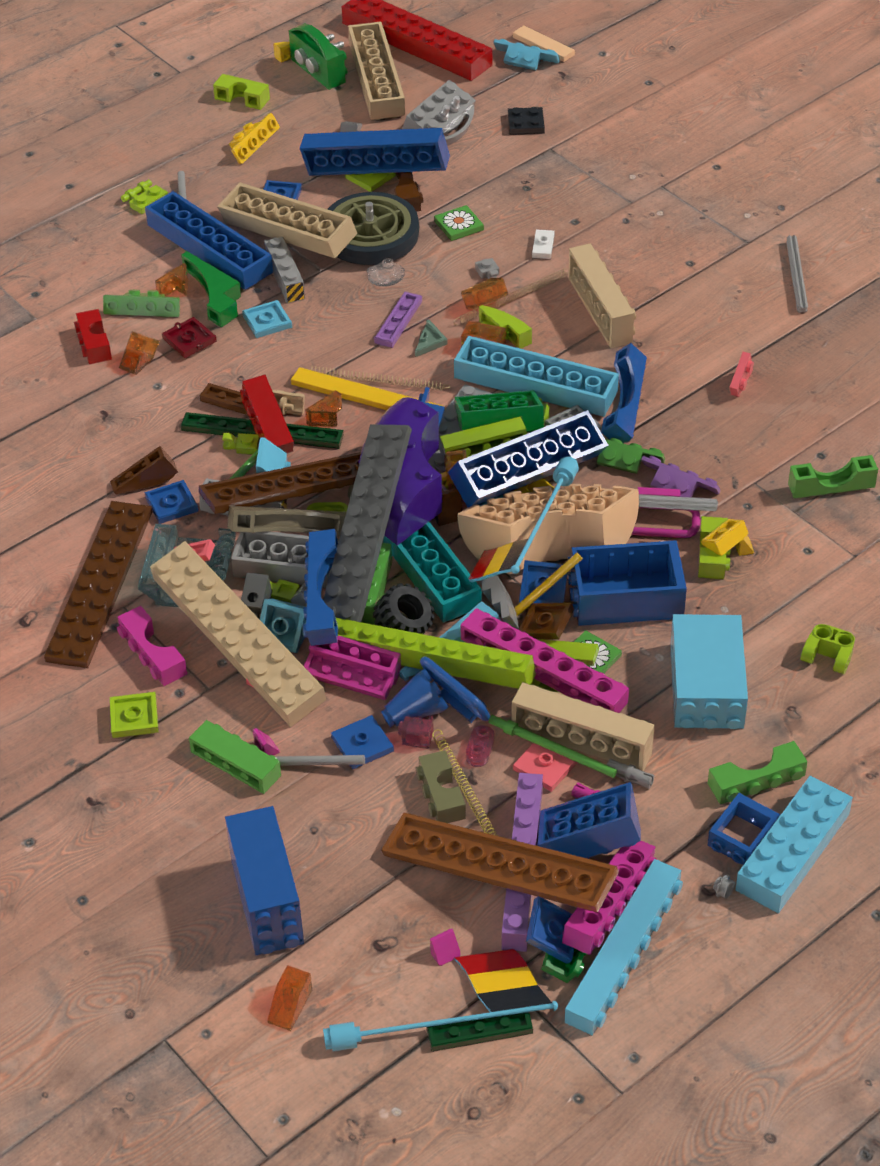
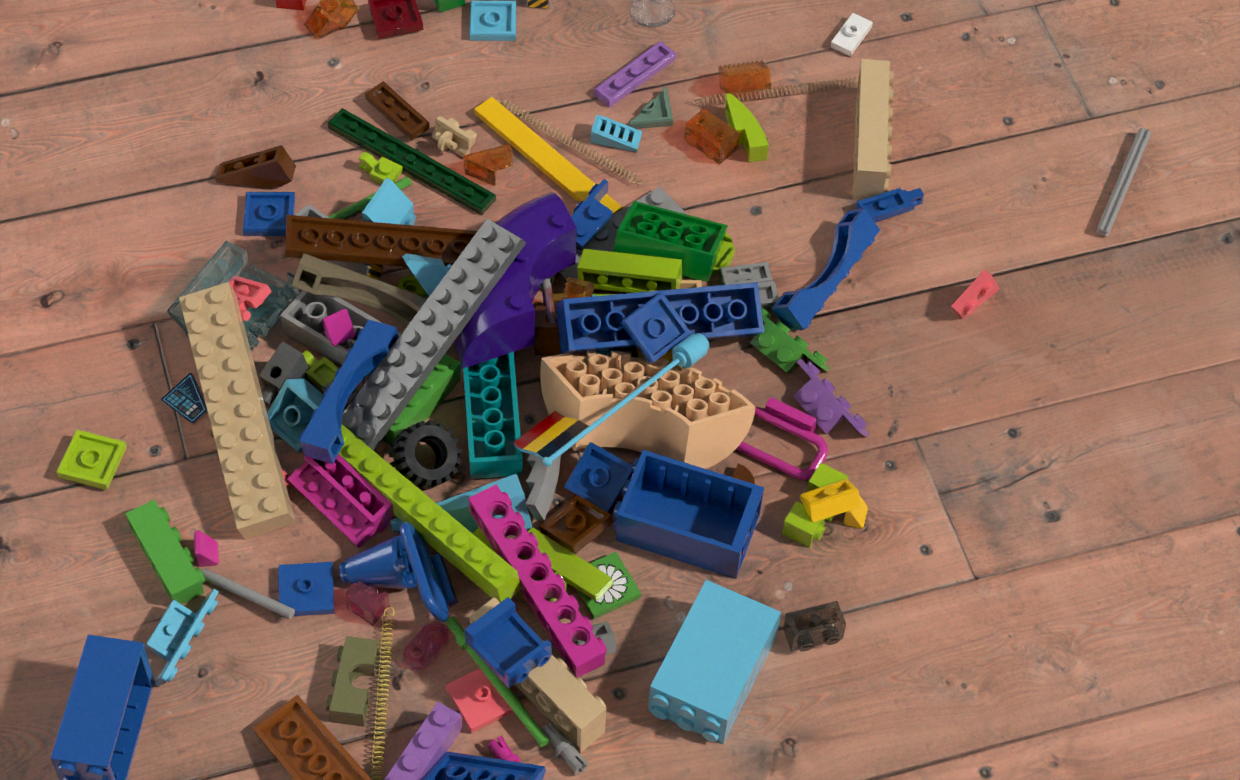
camera: 20 degrees right, 10 degrees up
(98, 585) = (142, 285): reddish brown plate -> none
(164, 662) = (155, 409): dark pink arch -> none
(189, 650) = (186, 399): none -> dark blue sticker
(265, 412) = (414, 149): red wedge -> none
(284, 804) = (175, 631): none -> medium azure bracket
(285, 548) = (338, 327): none -> dark pink slope
(334, 491) = (426, 270): none -> medium azure slope
(408, 362) = (608, 125): none -> medium azure slope
(487, 268) = (770, 45): light grey plate -> none
(523, 370) = (749, 211): medium azure brick -> none
(533, 463) = (655, 327): none -> blue tile
(550, 581) = (598, 481): yellow bar -> none
(555, 707) = (507, 643): none -> blue panel
(644, 337) = (891, 203): none -> blue hinge
(674, 502) = (800, 431): light grey axle -> none
(765, 623) = (814, 626): none -> clear smoke brick
(831, 643) = (873, 684): lime piece -> none
(855, 475) = (1029, 477): bright green arch -> none

